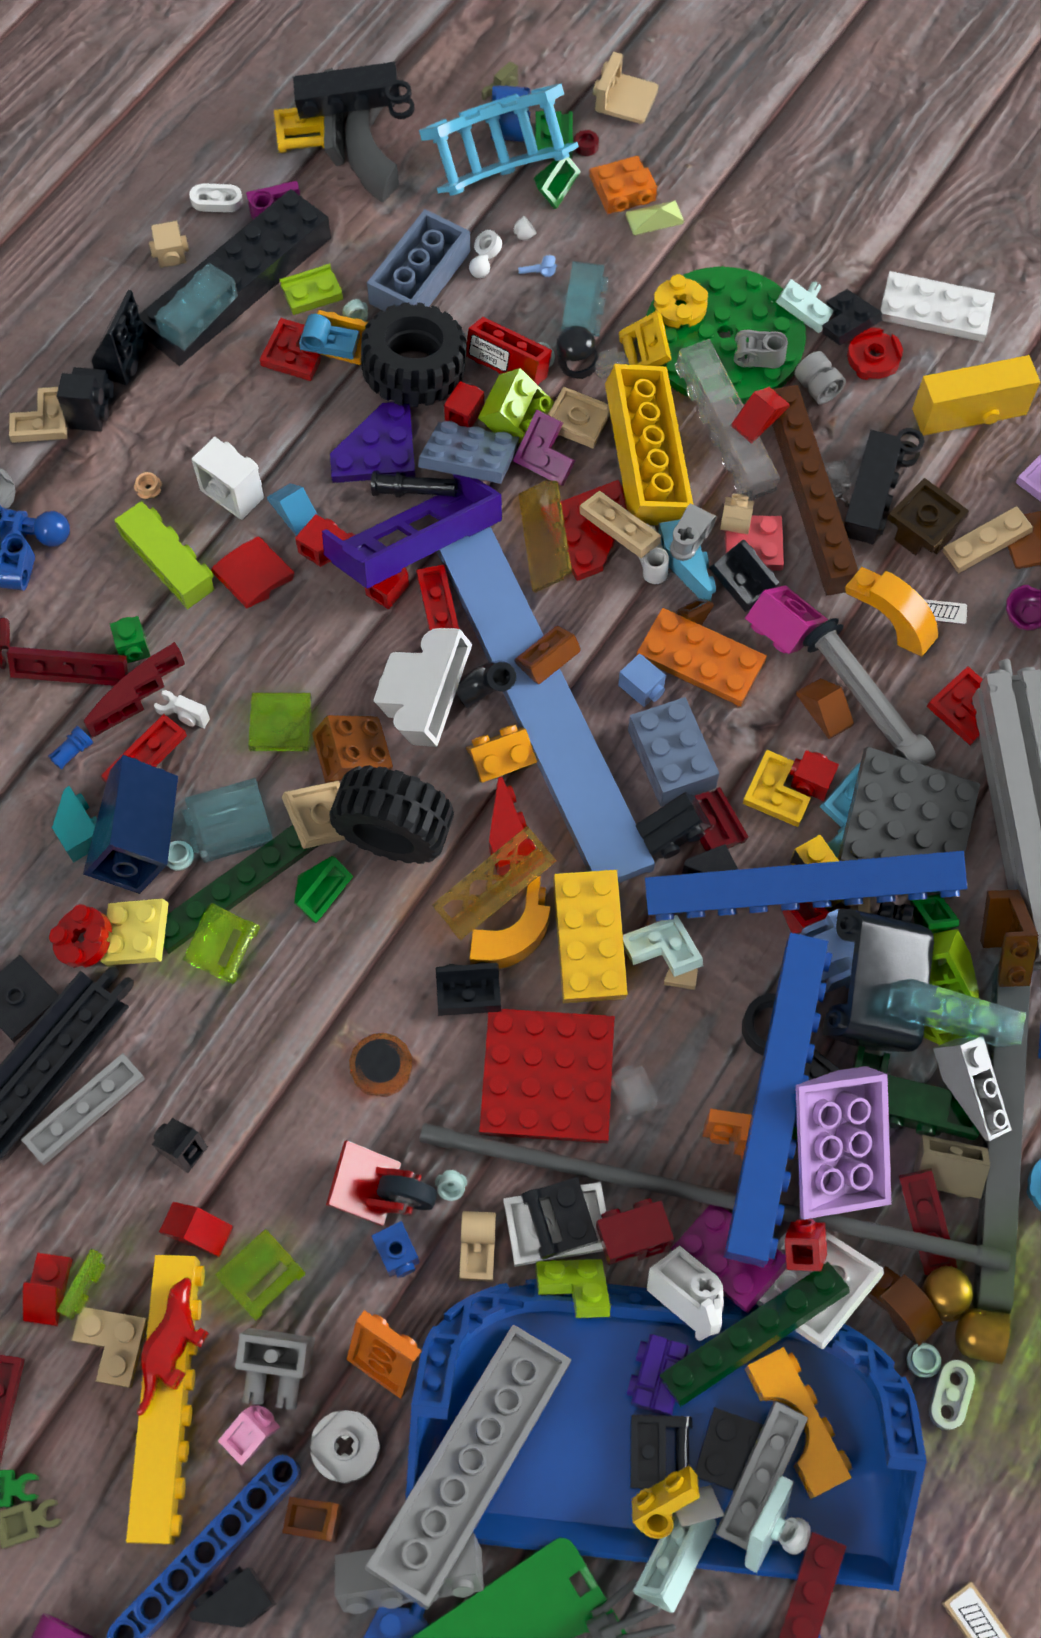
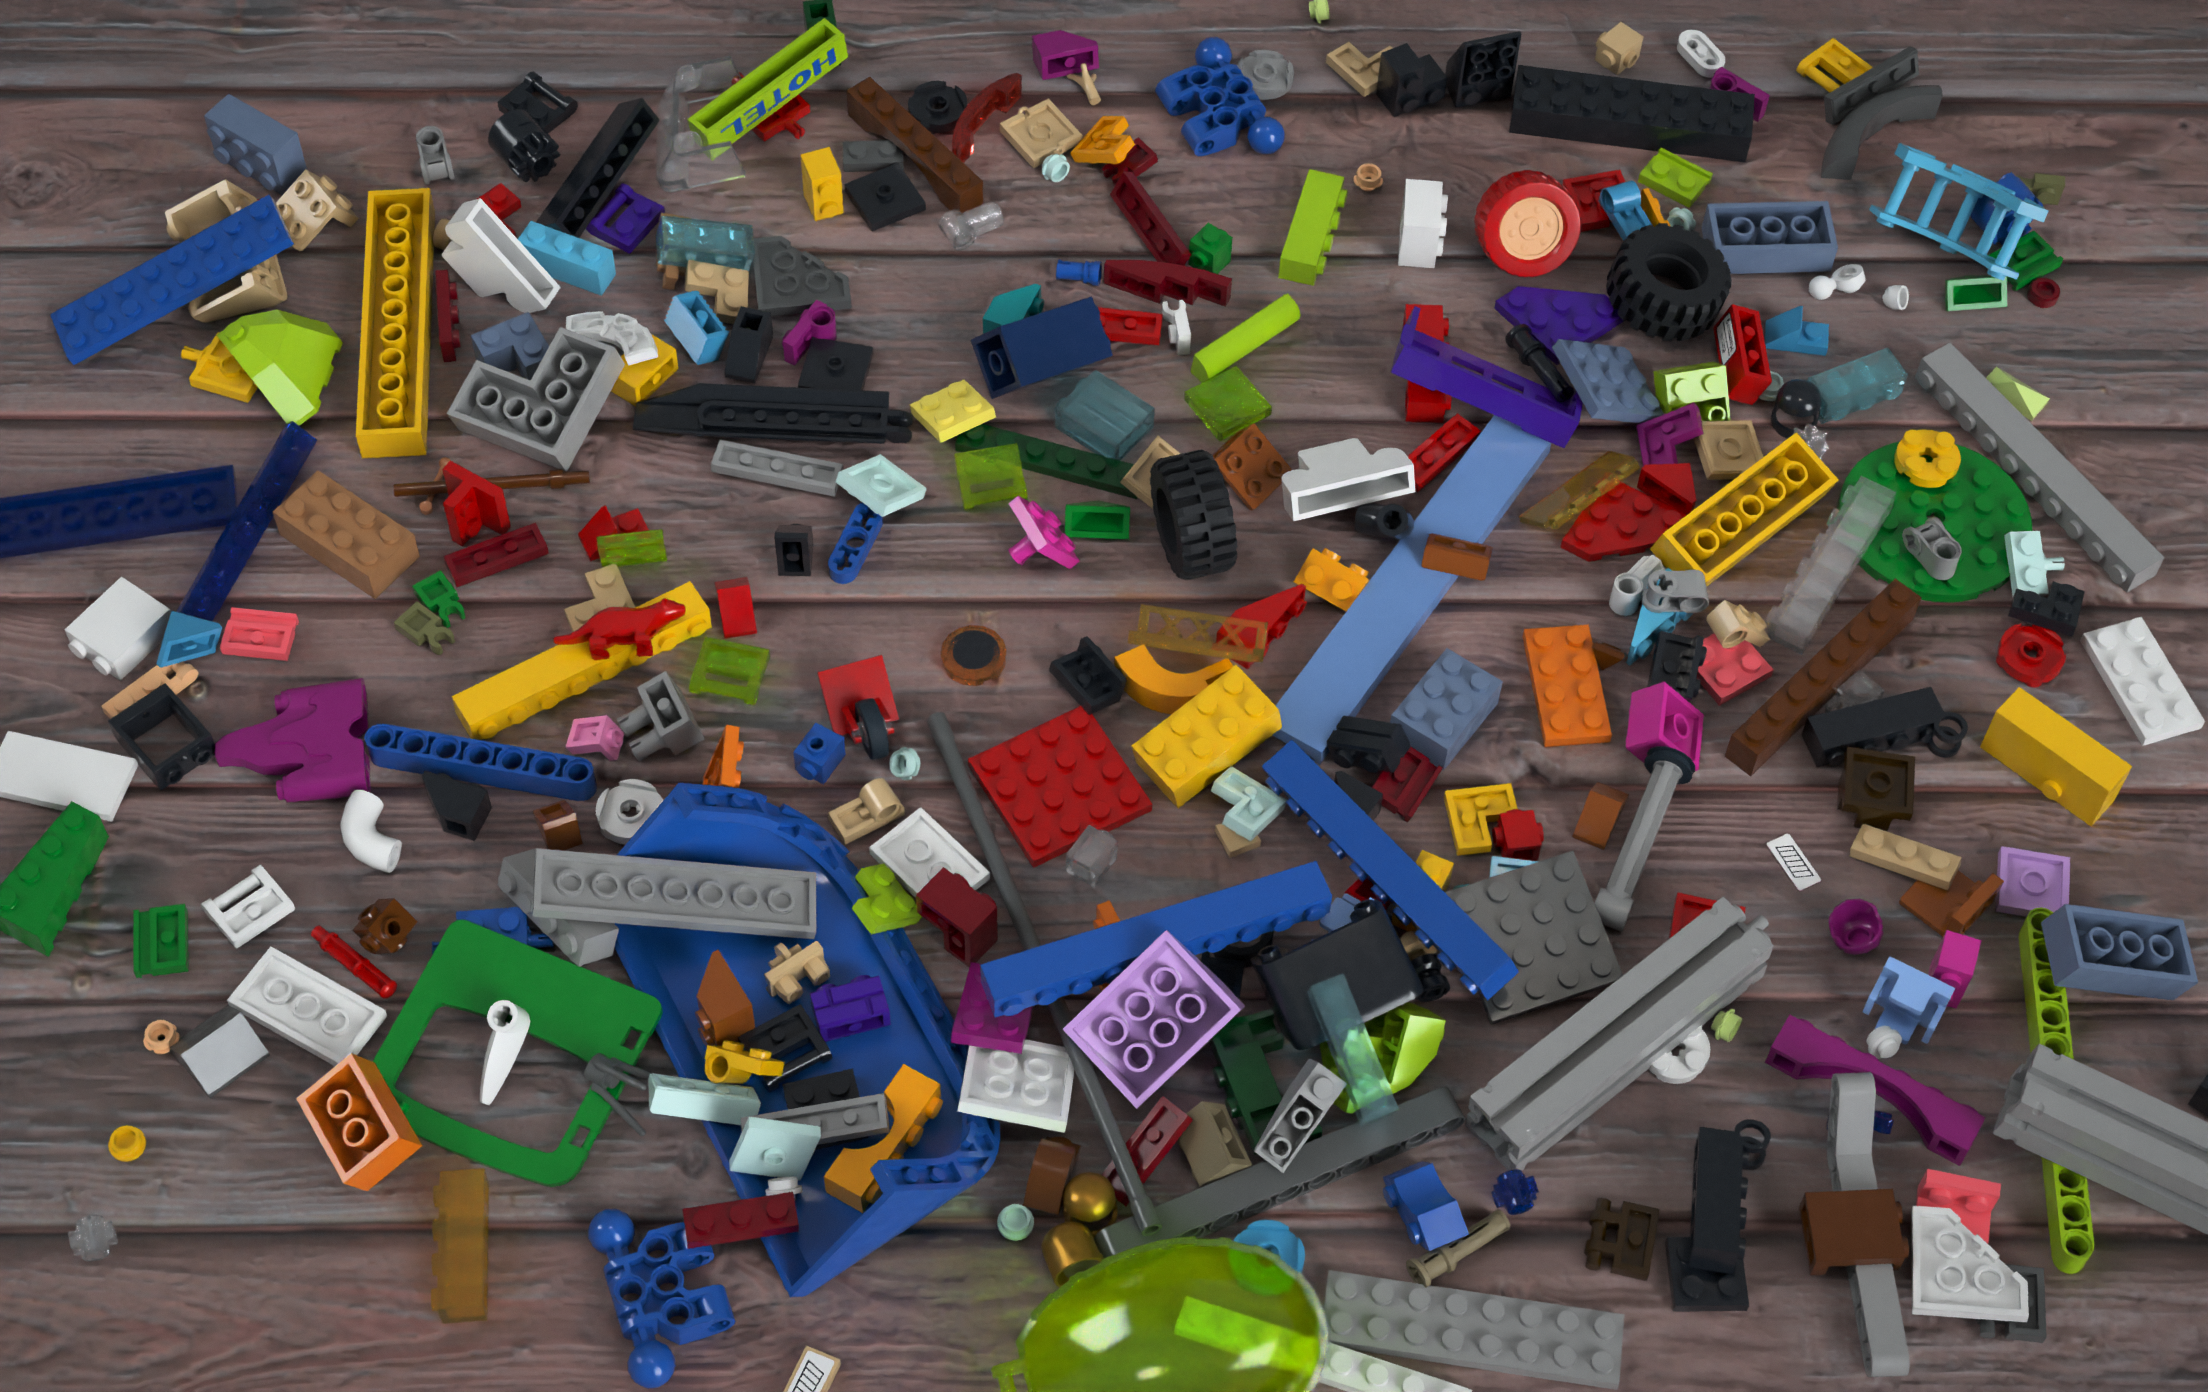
camera: 55 degrees right, 10 degrees down
(66, 935) = (918, 376): red plate -> none
(168, 1035) = (881, 485): none -> light aqua plate
(180, 855) = (1044, 402): light aqua plate -> none
(196, 306) = (1560, 94): clear light blue brick -> none
(223, 1103) = (857, 555): none -> blue beam
(233, 670) = (1245, 338): none -> lime brick
(252, 572) = (1351, 299): red slope -> none
(293, 407) = (1527, 223): none -> red wheel
(293, 506) = (1441, 289): dark azure slope -> none
(312, 941) = (1042, 535): none -> dark pink plate
(351, 91) = (1898, 73): black hinge -> none
(464, 405) = (1658, 353): red brick -> none
(510, 307) = (1792, 334): none -> dark azure slope
(546, 268) = (1870, 338): light blue hand -> none
(570, 1215) = (951, 852): black plate -> none
(585, 474) = (1669, 484): none -> red slope
(599, 1415) = (792, 966): none -> tan hips
(602, 1485) = (722, 1004): none -> dark orange slope
(620, 524) = (1636, 535): tan plate -> none
(623, 94) = (2126, 285): tan bracket -> none
(623, 184) = (2024, 347): orange plate -> none
(642, 680) = (1495, 644): medium blue brick -> none
(650, 338) = (1858, 455): yellow plate -> none
(688, 1291) = (938, 985): white piece -> none
(702, 1509) = (755, 1094): white sticker -> none
(729, 244) = (2039, 468): none -> light grey brick
(754, 1334) = (934, 1049): dark green plate -> none
(759, 413) = (1854, 576): red slope -> none
(805, 1245) = (1041, 1046): red brick -> none
(819, 377) = (1955, 618): light grey wheel -> none
(901, 604) = (1748, 809): light orange arch -> none
(934, 914) = (1454, 1005): green slope -> none
(950, 1395) = (997, 1257): white plate -> none
(1011, 928) = (1463, 1073): reddish brown panel -> none

